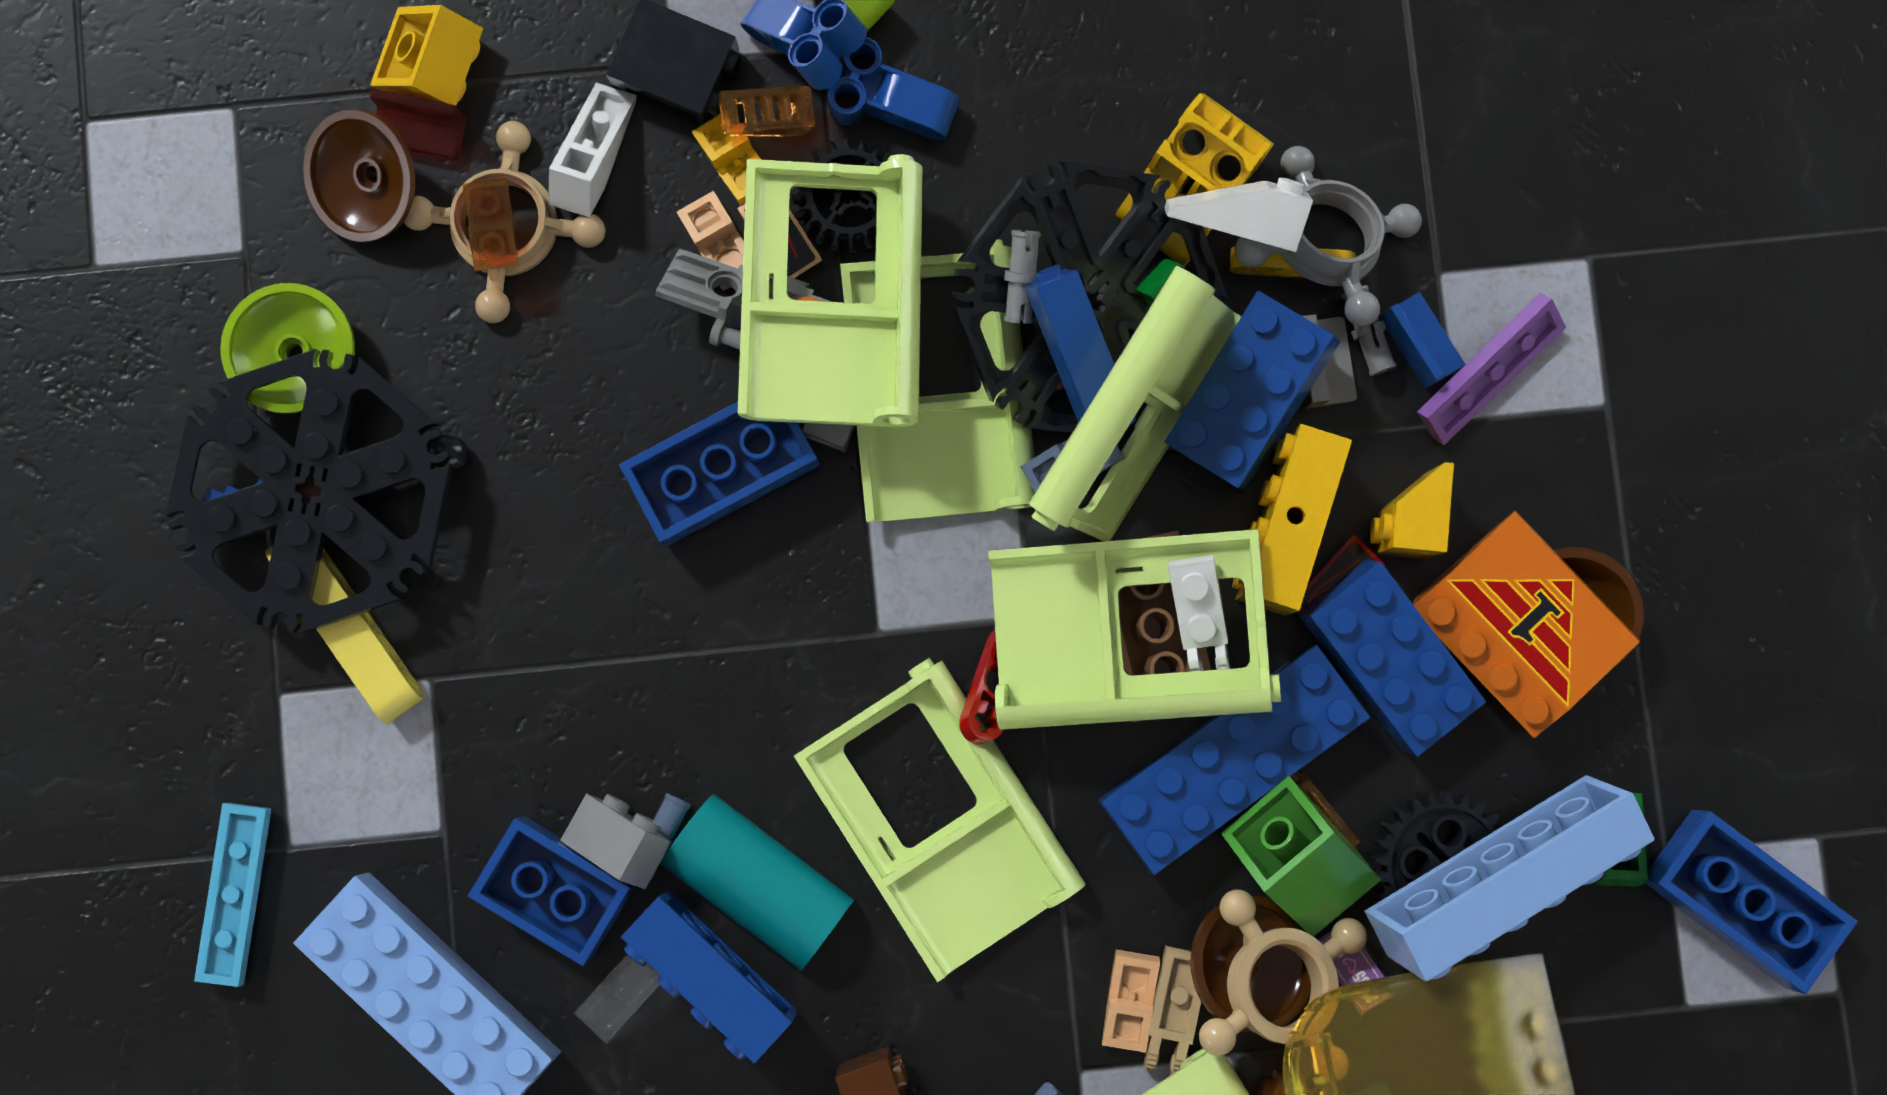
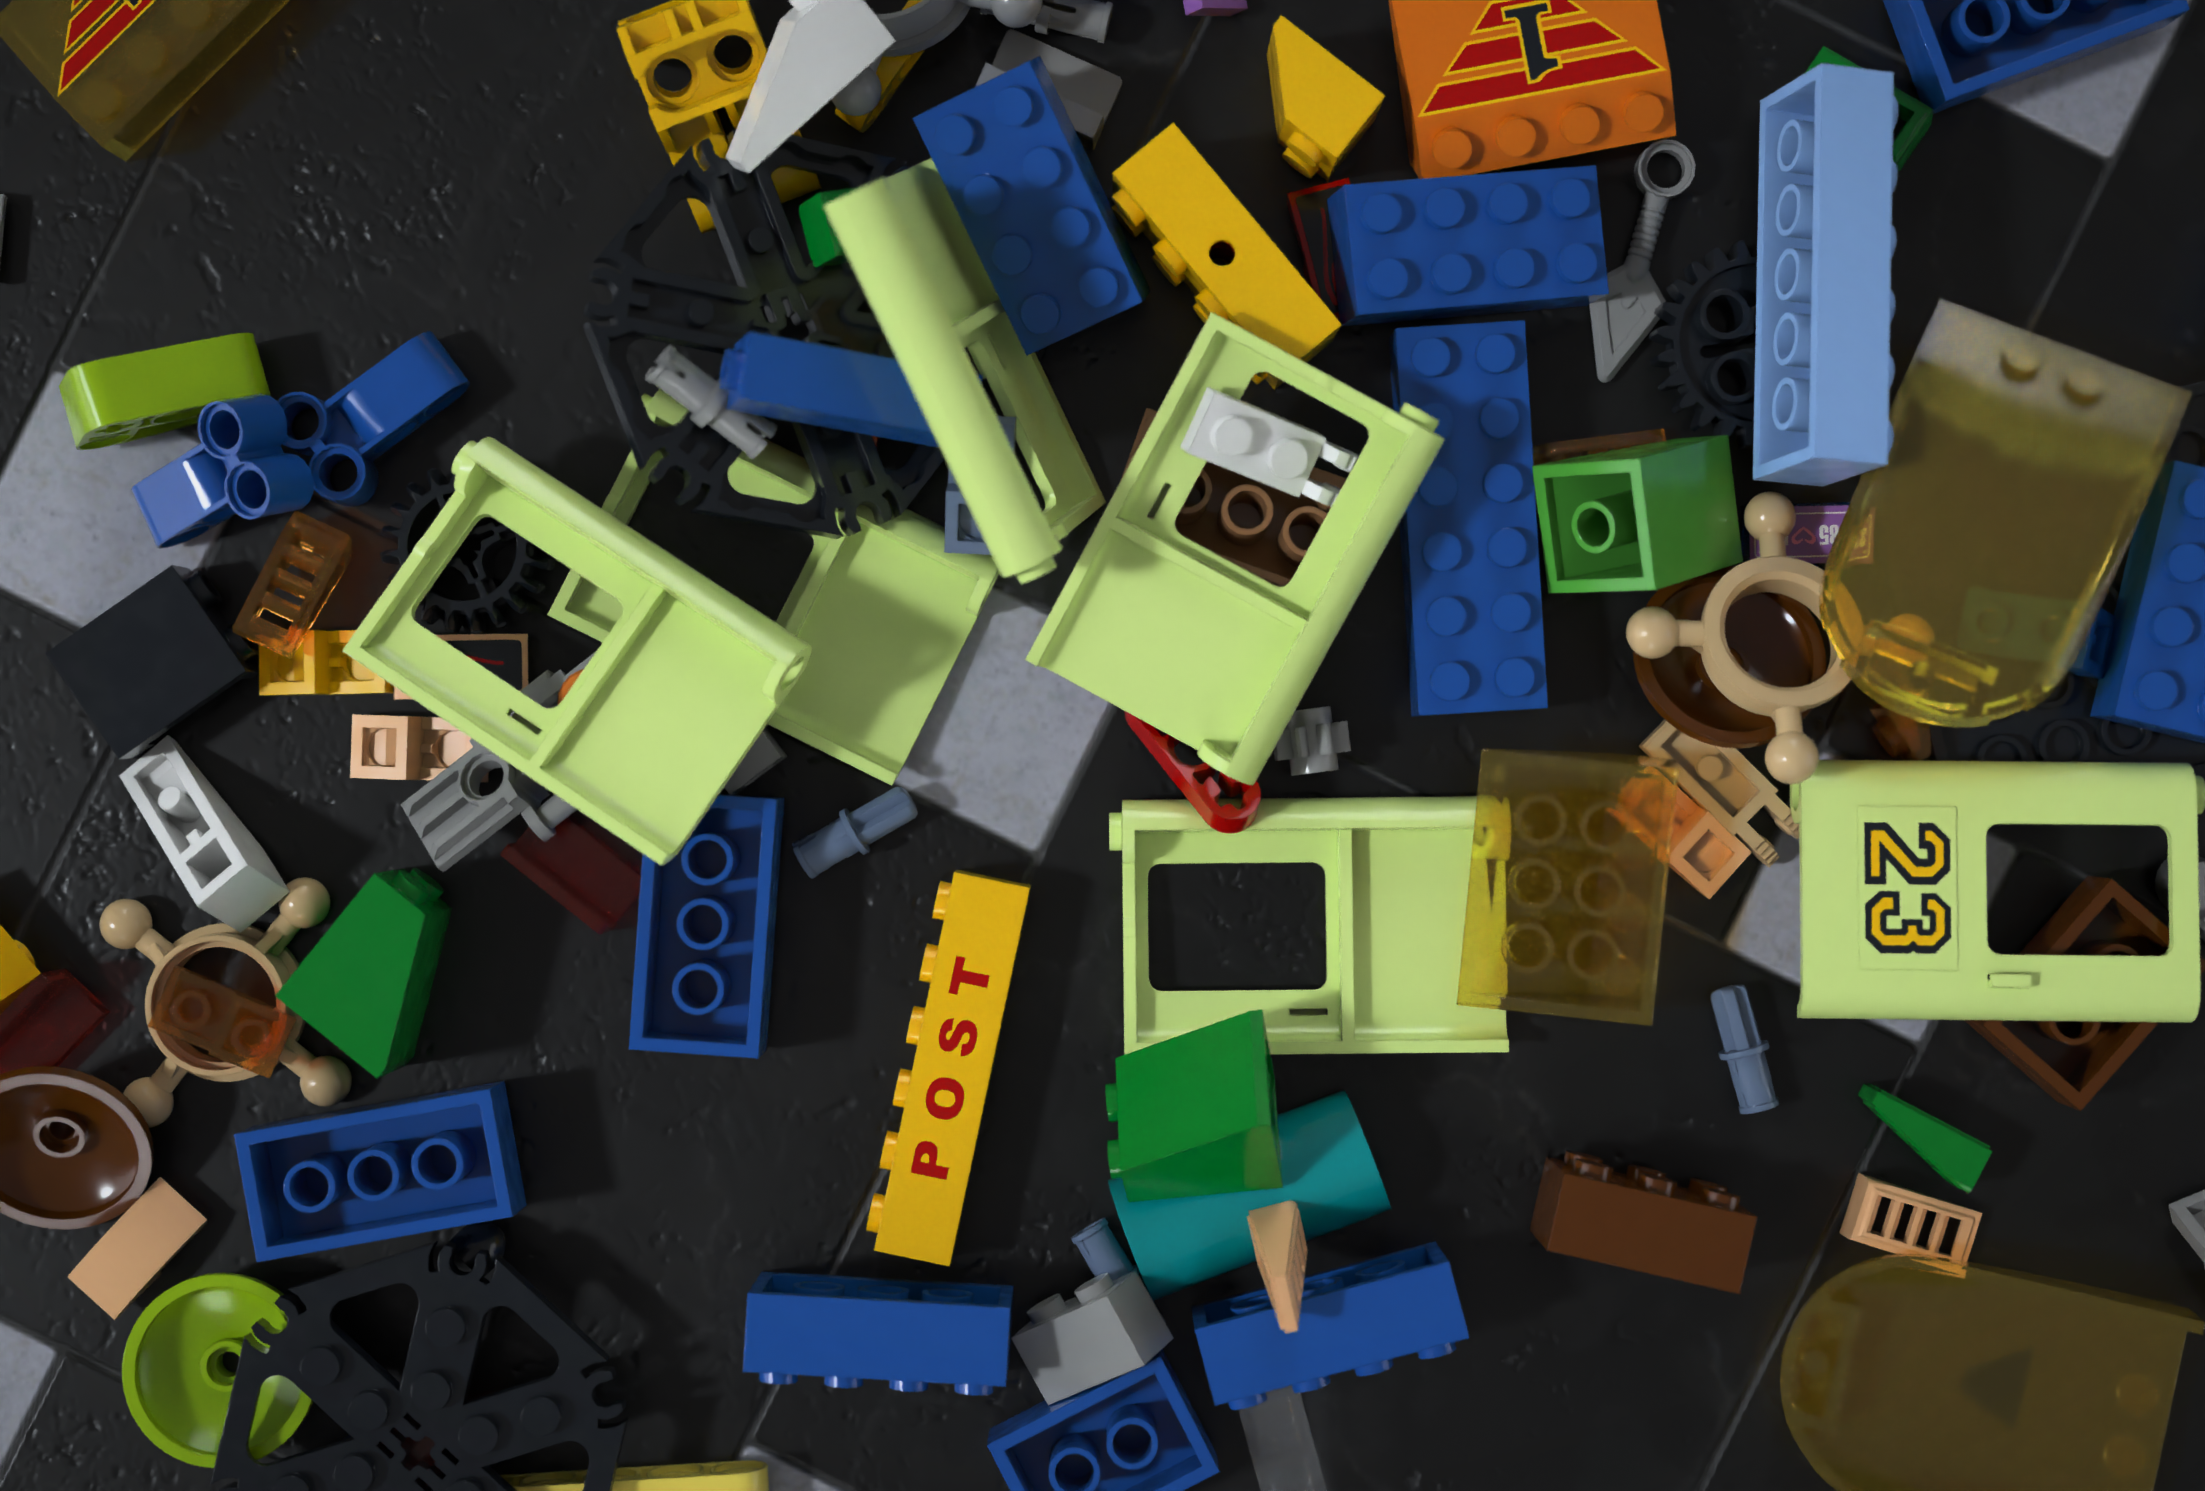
camera: 55 degrees left, 5 degrees up
(329, 259) = (137, 1248): none -> light nougat slope
(459, 368) = (380, 1171): none -> blue brick
(543, 713) = (878, 1331): none -> blue brick
(574, 292) = (375, 970): none -> green slope
(702, 374) = (578, 873): none -> clear red panel
(723, 659) = (950, 1068): none -> yellow brick
(732, 922) = (1281, 1258): none -> light nougat slope
(786, 819) = (1197, 1114): none -> green slope
(826, 517) = (854, 831): none -> sand blue axle
(1046, 749) = (1312, 741): none -> light grey gear
(1058, 953) = (1568, 883): none -> clear yellow slope
(1414, 775) = (1627, 312): none -> light grey piece

